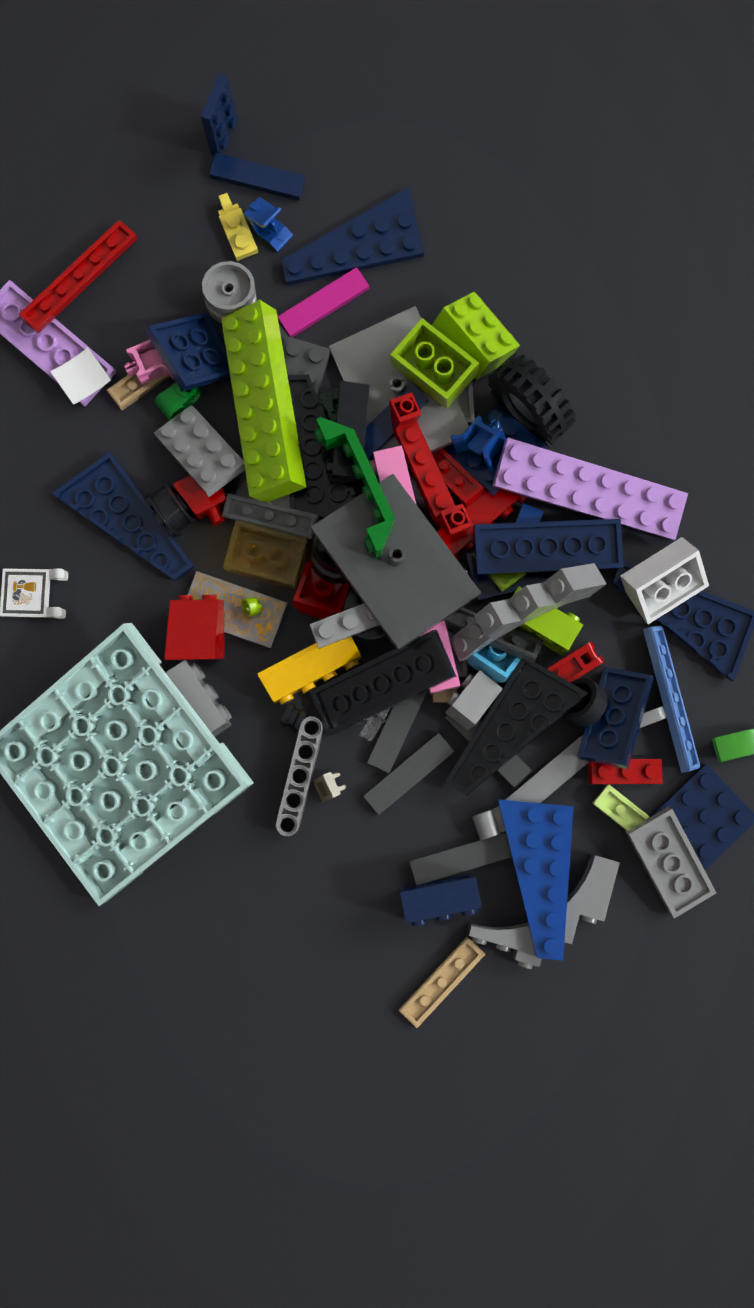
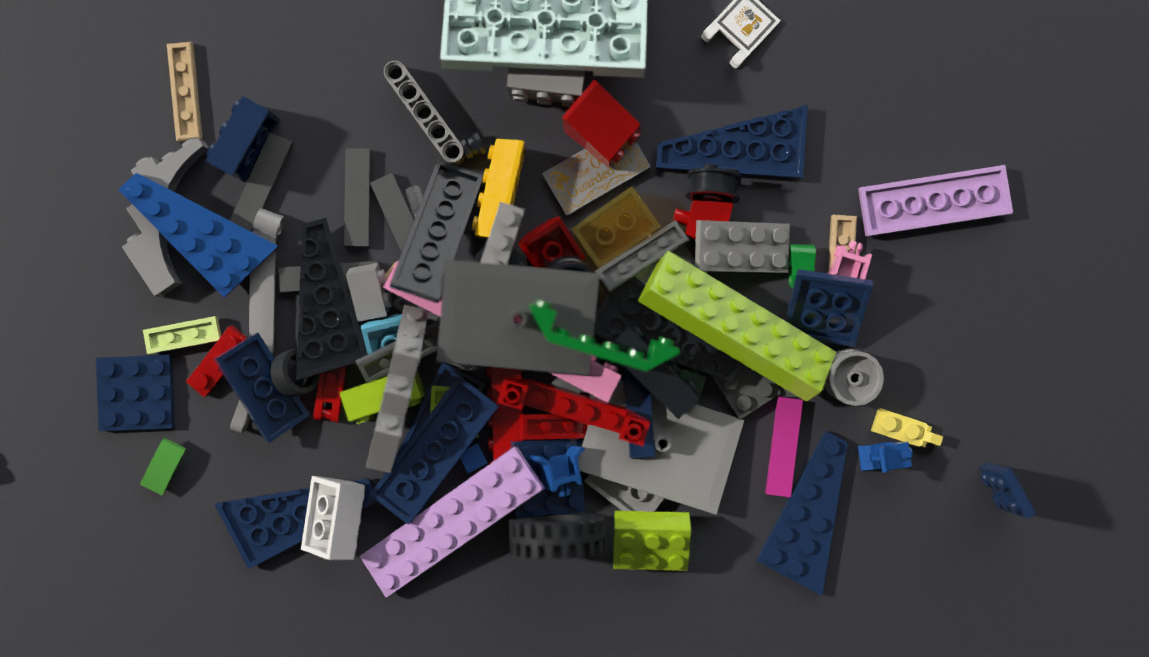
camera: 130 degrees right, 5 degrees up
(78, 276) = (968, 269): red plate -> none
(81, 376) = (883, 203): white sticker -> none
(250, 606) = (585, 183): lime hinge -> none
(257, 176) = (935, 483): dark blue tile -> none
(327, 786) = (399, 127): dark tan tile -> none
(434, 363) = (652, 485): lime brick -> none
(671, 699) = (242, 445): medium blue tile -> none
(671, 862) = (121, 335): light grey plate -> none

